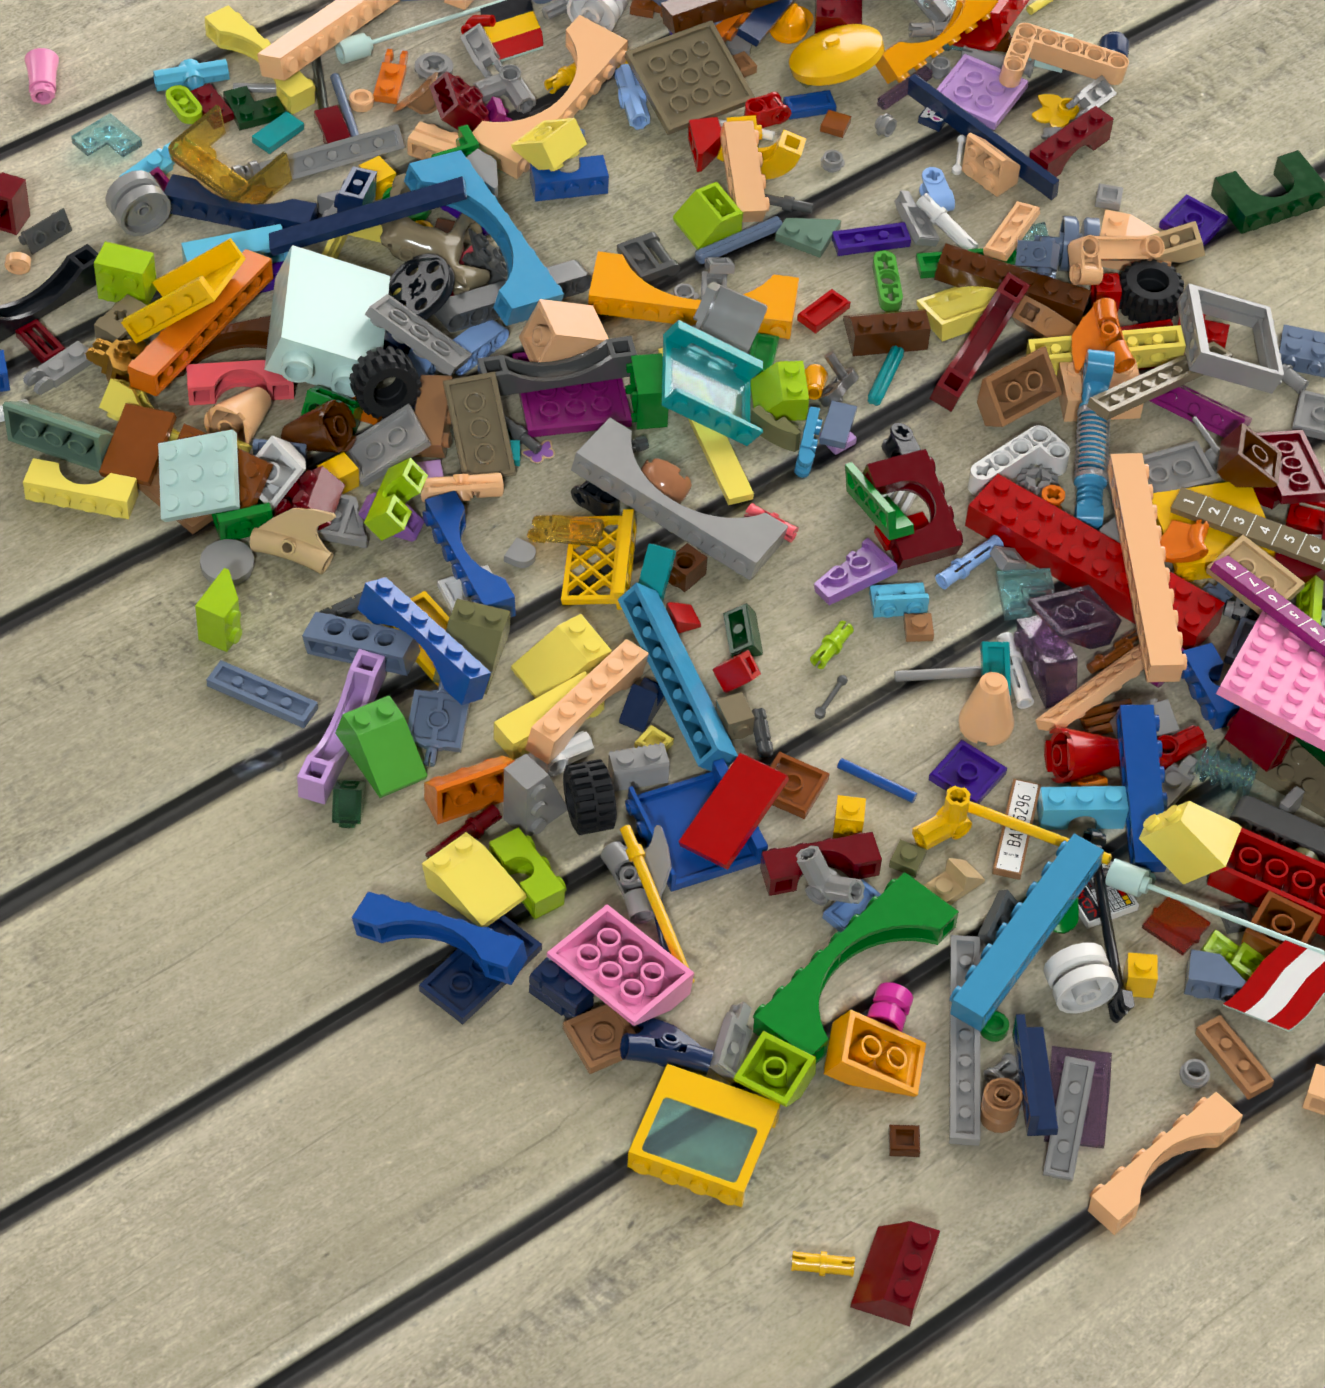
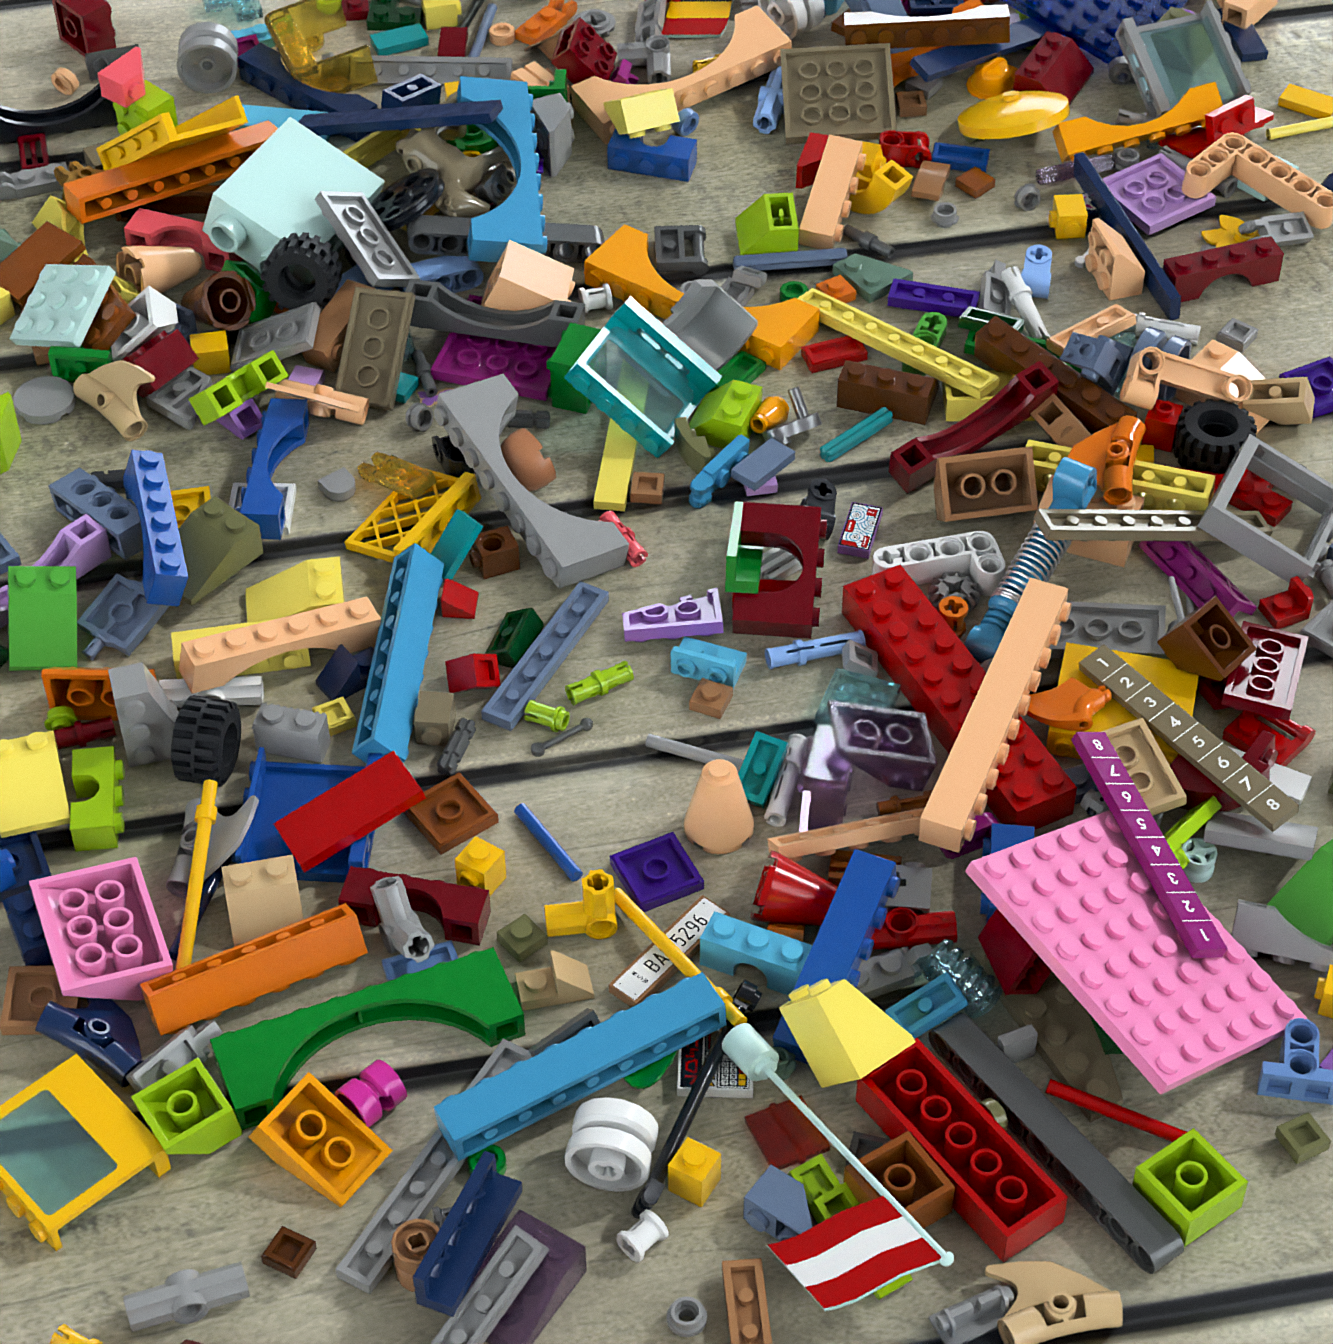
camera: 30 degrees right, 5 degrees down
(108, 250) = (124, 79): none -> coral slope
(451, 822) = (59, 718): none -> lime plate
(544, 474) = (419, 417): none -> light grey plate
(615, 322) = (596, 297): none -> white bush
(710, 902) = (261, 897): none -> tan slope
(745, 954) = (253, 969): none -> orange brick
(759, 473) = (647, 487): none -> medium nougat tile
(760, 269) = (791, 290): none -> green tile
(779, 637) = (545, 656): none -> sand blue plate
(790, 256) = (837, 288): none -> orange plate
(804, 127) = (931, 180): none -> medium nougat slope
(812, 684) = (548, 716): none -> lime pin
(861, 1198) = (186, 1296): none -> light grey piece
(875, 288) = (902, 345): none -> light yellow tile
(928, 133) = (1068, 216): none -> yellow brick
(928, 246) = (976, 318): none -> dark green tile
(940, 450) = (860, 530): none -> tile
(1060, 208) = (1171, 328): none -> white pin
(1132, 1033) = (642, 1235): none -> white bush
(1225, 794) = (928, 1005): none -> dark azure hinge
(1273, 408) = (1288, 606): none -> red bracket

